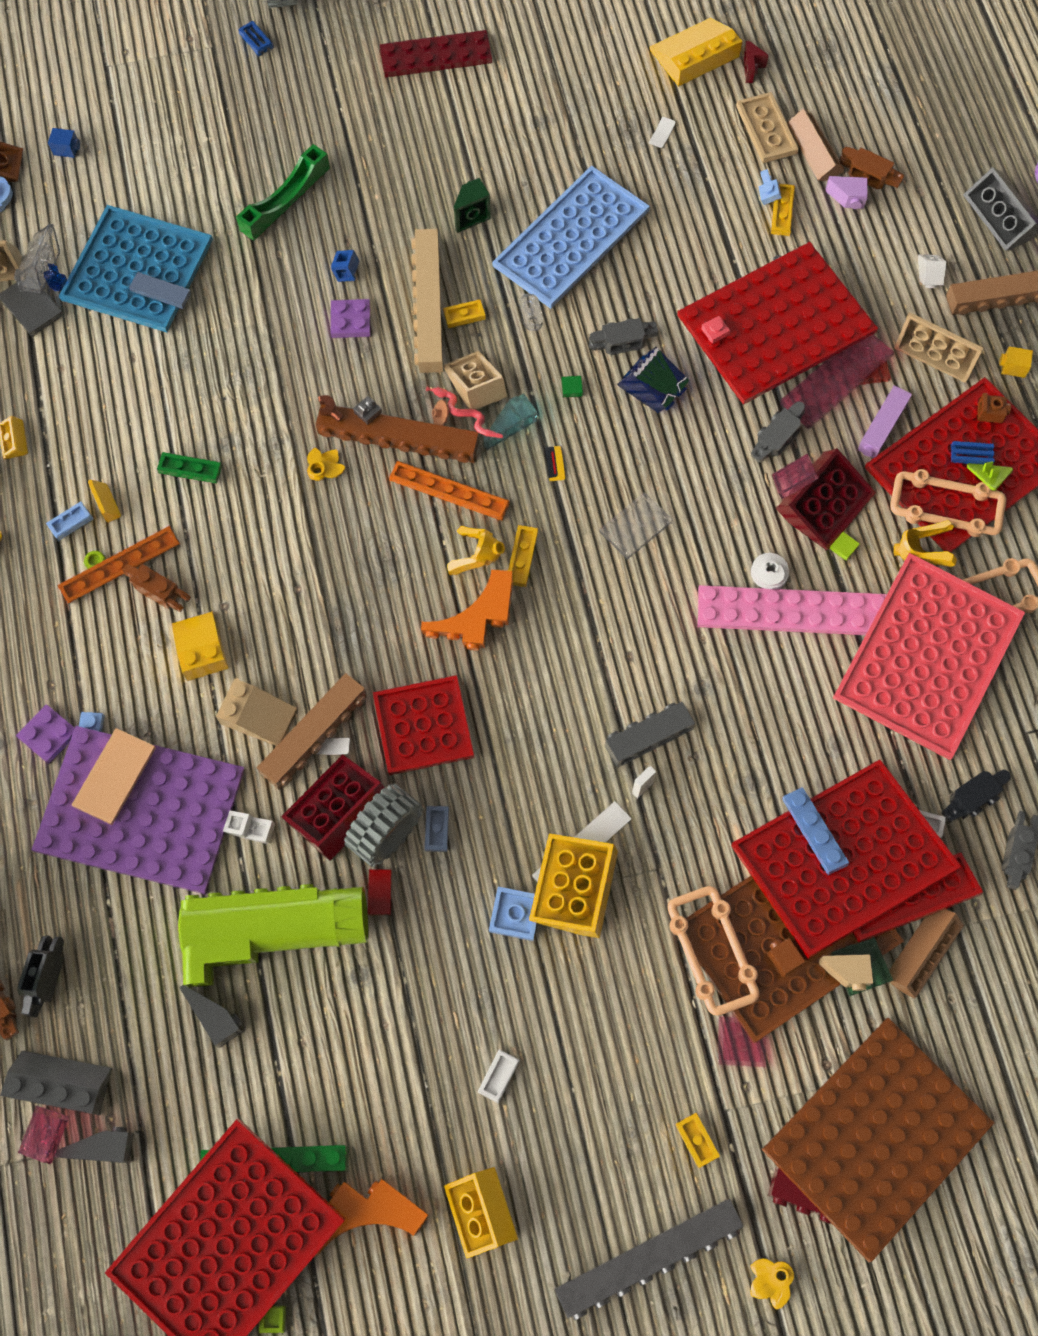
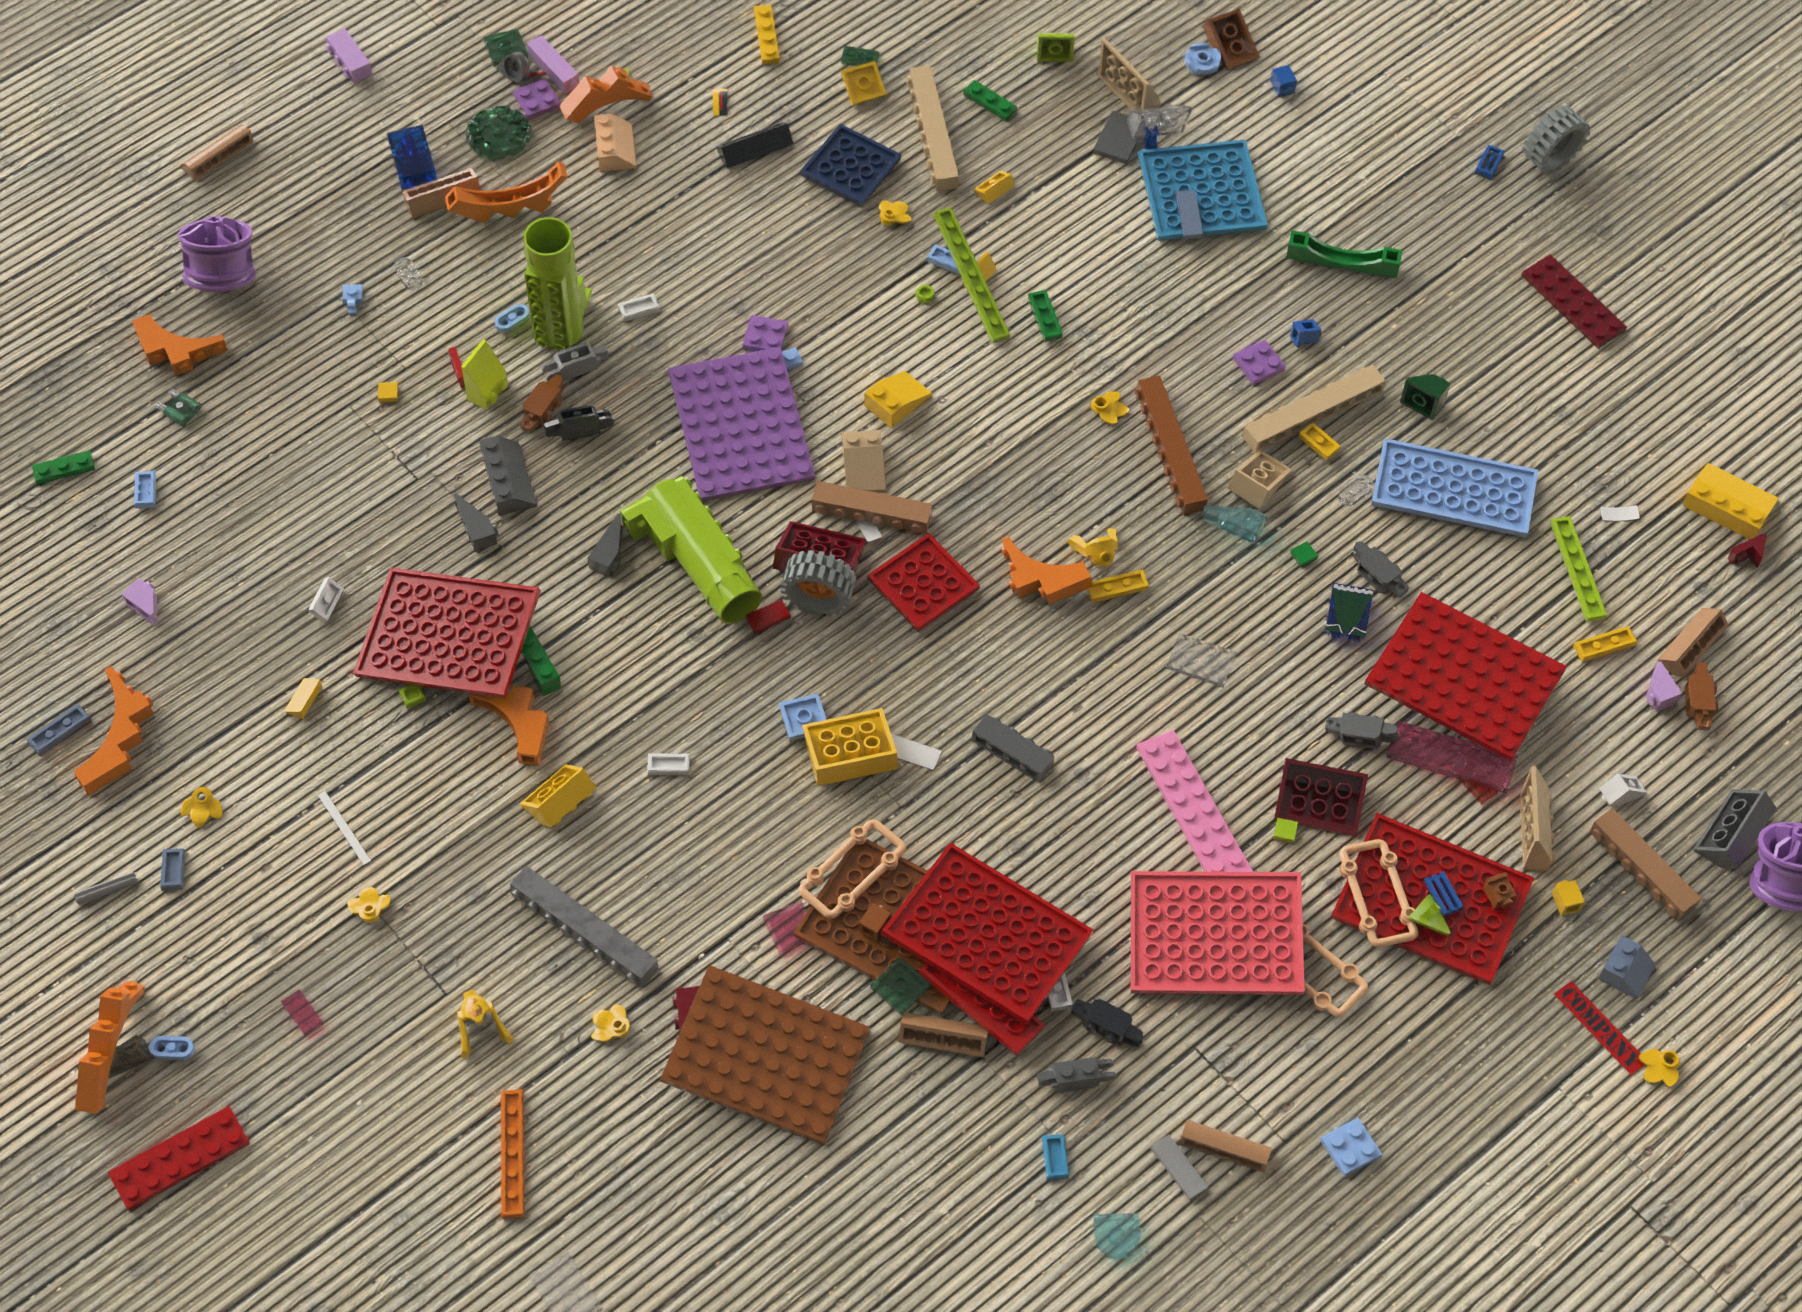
camera: 60 degrees right, 10 degrees down
(43, 1135) = (466, 483): clear pink tile -> none
(105, 506) = (971, 275): none -> lime tile
(112, 567) = (932, 310): orange tile -> none
(113, 776) = (754, 390): light nougat tile -> none
(155, 586) = (926, 342): dark orange hinge -> none
(249, 827) = (769, 503): white slope -> none
(330, 408) = (1157, 381): copper piece -> none
(367, 410) = (1173, 409): flat silver tile -> none
(436, 828) = (841, 631): sand blue plate -> none
(440, 412) = (1209, 465): nougat piece -> none
(442, 393) = (1232, 460): coral animal -> none
(449, 490) = (1144, 508): orange tile -> none
(555, 463) = (1221, 574): sticker -> none
(643, 782) = (965, 757): white tile -> none
(697, 1140) = (692, 924): yellow plate -> none
(702, 189) = (1578, 569): none -> lime plate
(715, 329) = (1418, 625): coral plate -> none
(767, 127) = (1685, 593): tan plate -> none
(770, 189) = (1617, 623): light blue plate -> none
(770, 571) = (1222, 787): white piece -> none
(794, 476) = (1322, 756): clear pink tile -> none
(815, 831) = (995, 898): medium blue plate -> none
(849, 970) = (889, 970): tan slope -> none
(884, 422) = (1431, 812): lavender brick -> none
(911, 544) = (1318, 878): yellow piece -> none

